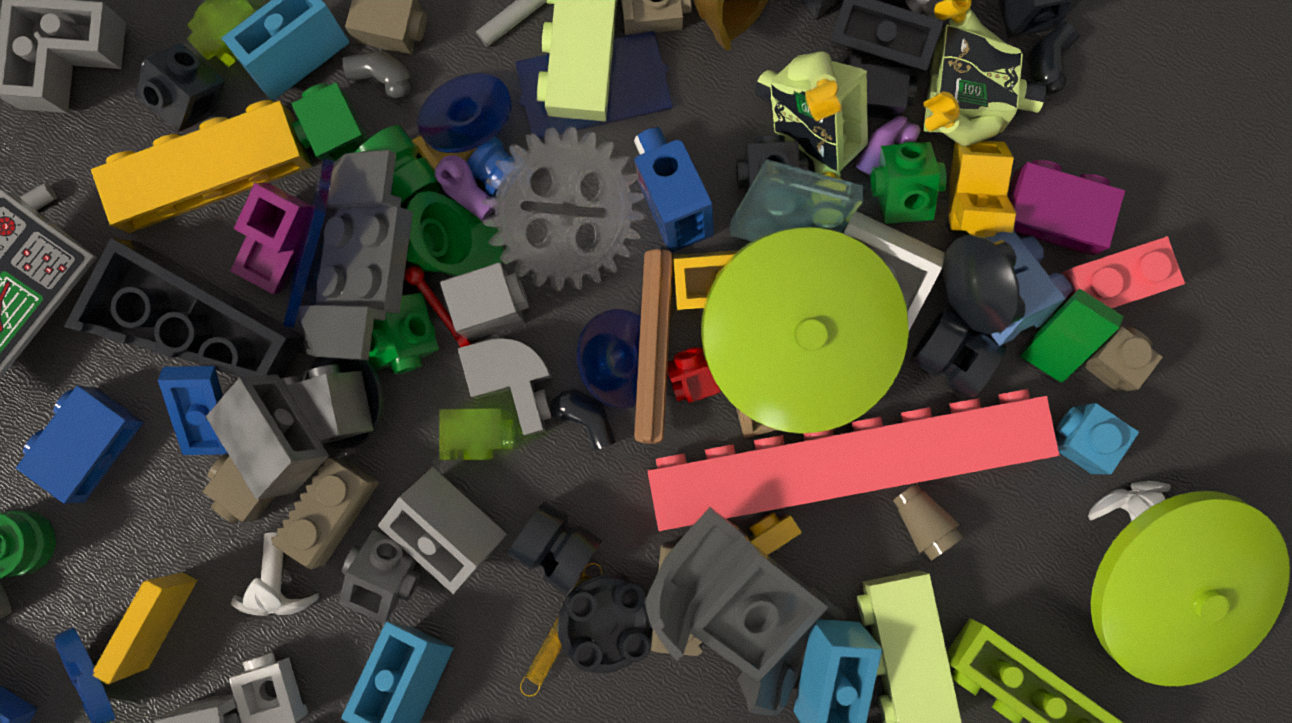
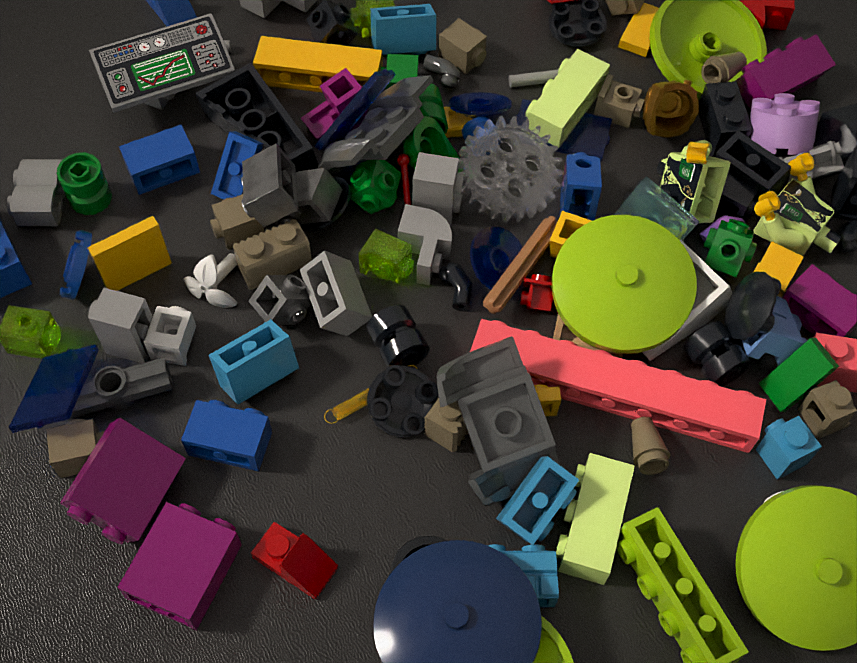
camera: 25 degrees right, 25 degrees down
(459, 184) = (456, 130): medium lavender arm -> none

